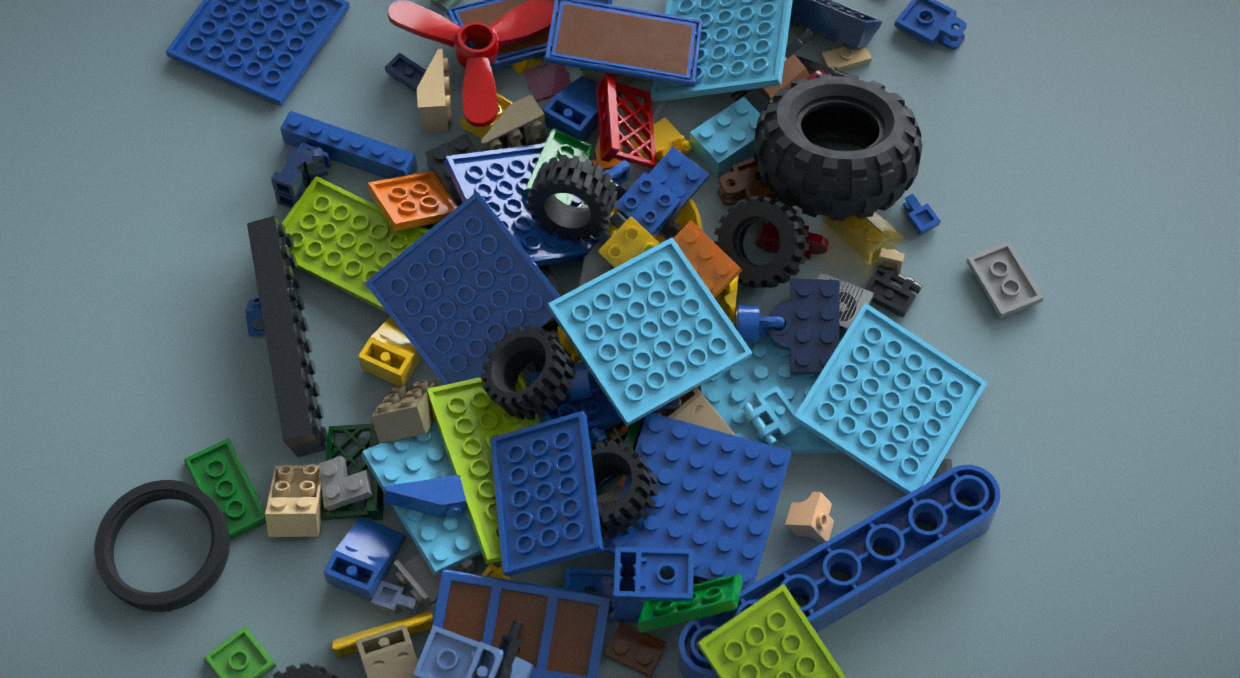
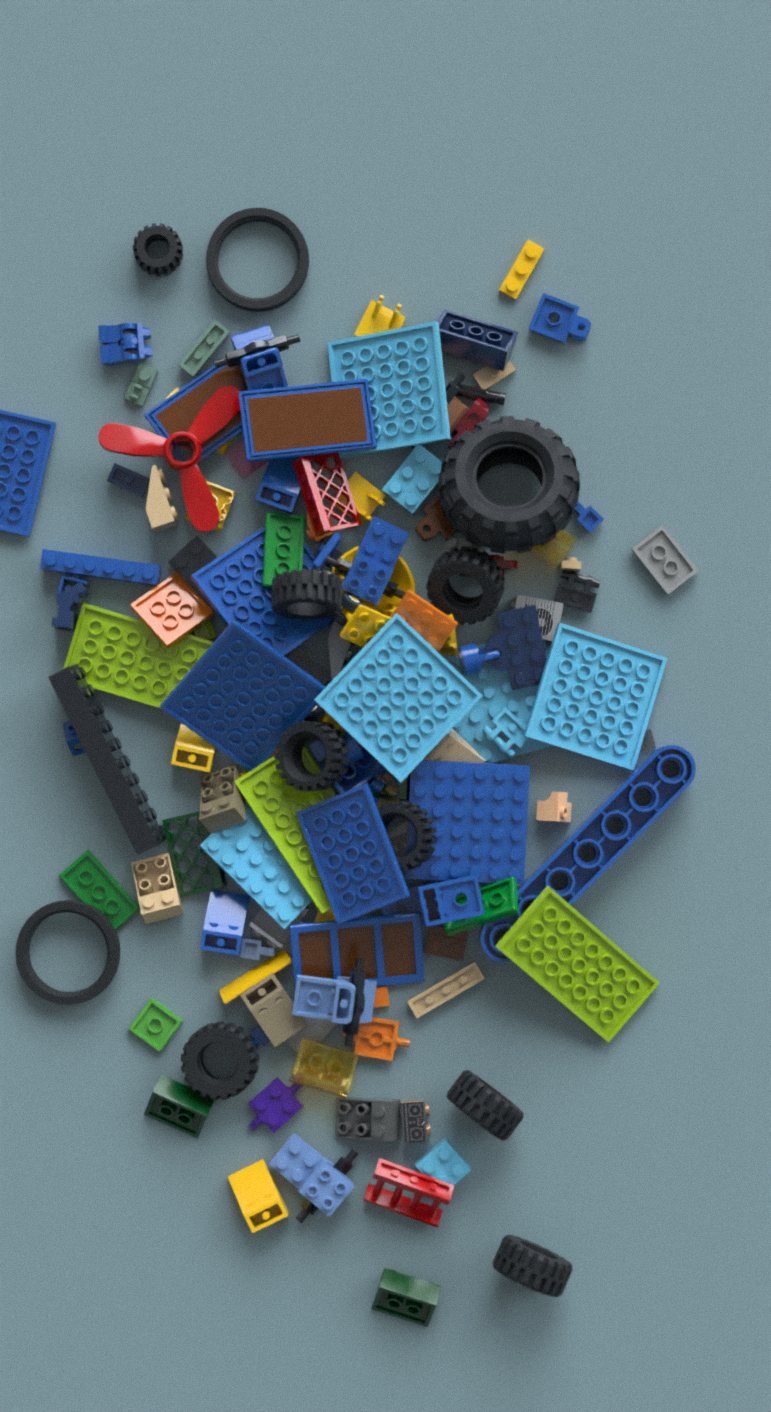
camera: 20 degrees left, 25 degrees up
(341, 489) = (187, 873): light grey plate -> none
(432, 496) = (267, 873): blue slope -> none
(518, 126) = (237, 518): dark tan slope -> none

